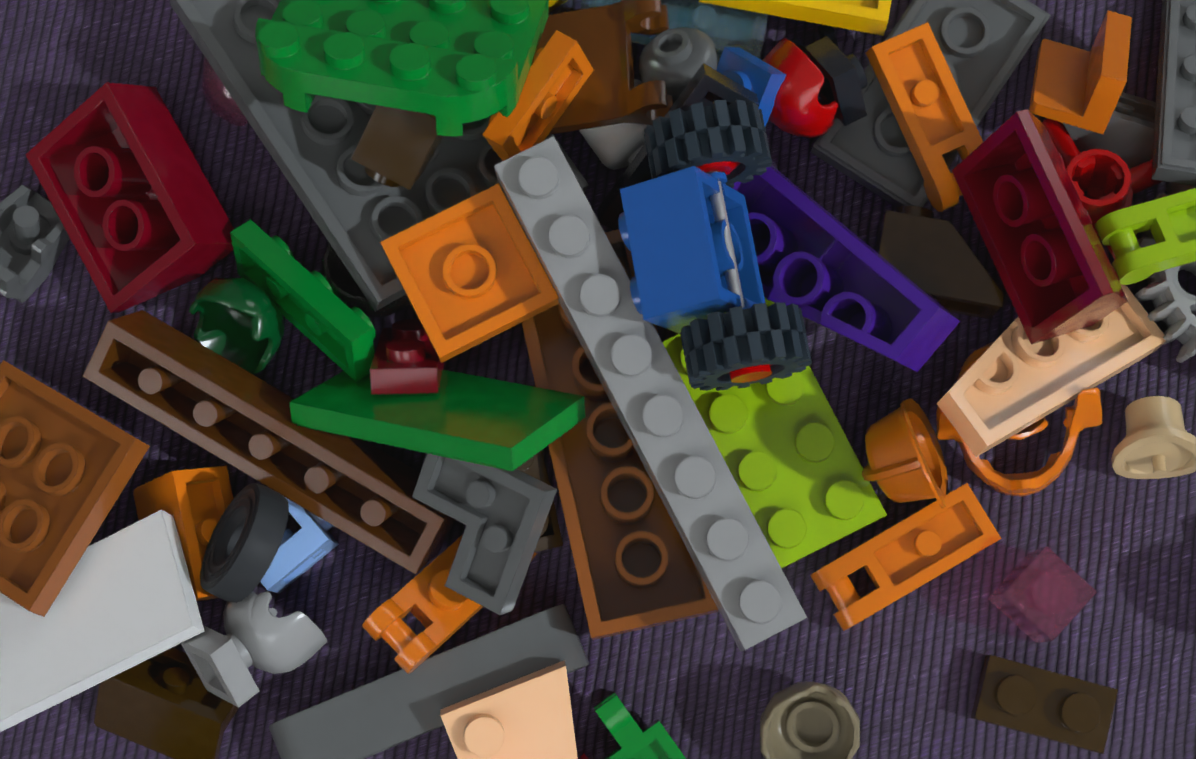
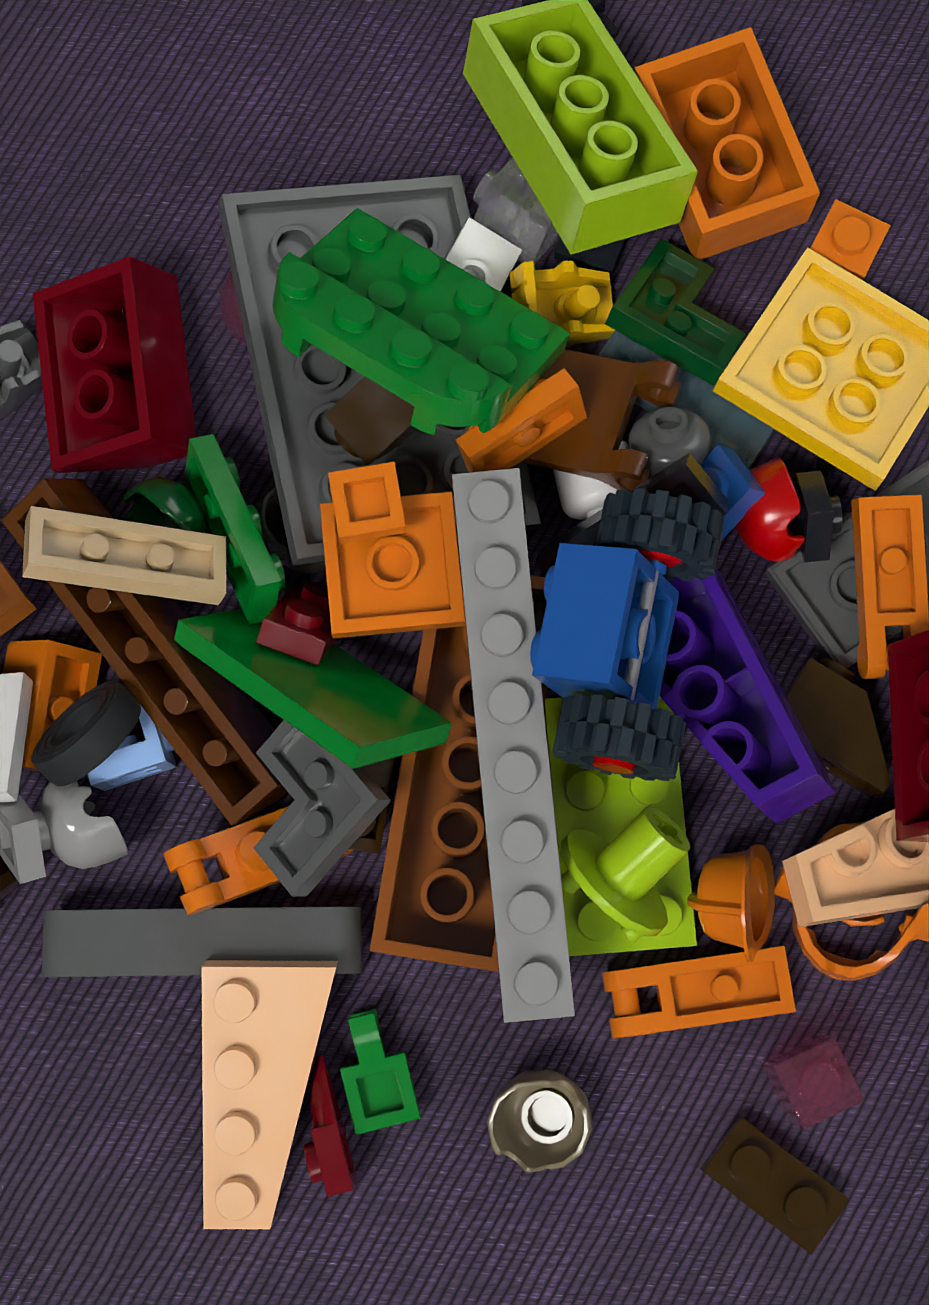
camera: 20 degrees right, 0 degrees up
(214, 362) = (124, 556): none -> tan plate
(424, 222) = (367, 502): none -> orange plate
(798, 467) = (624, 872): none -> lime piece

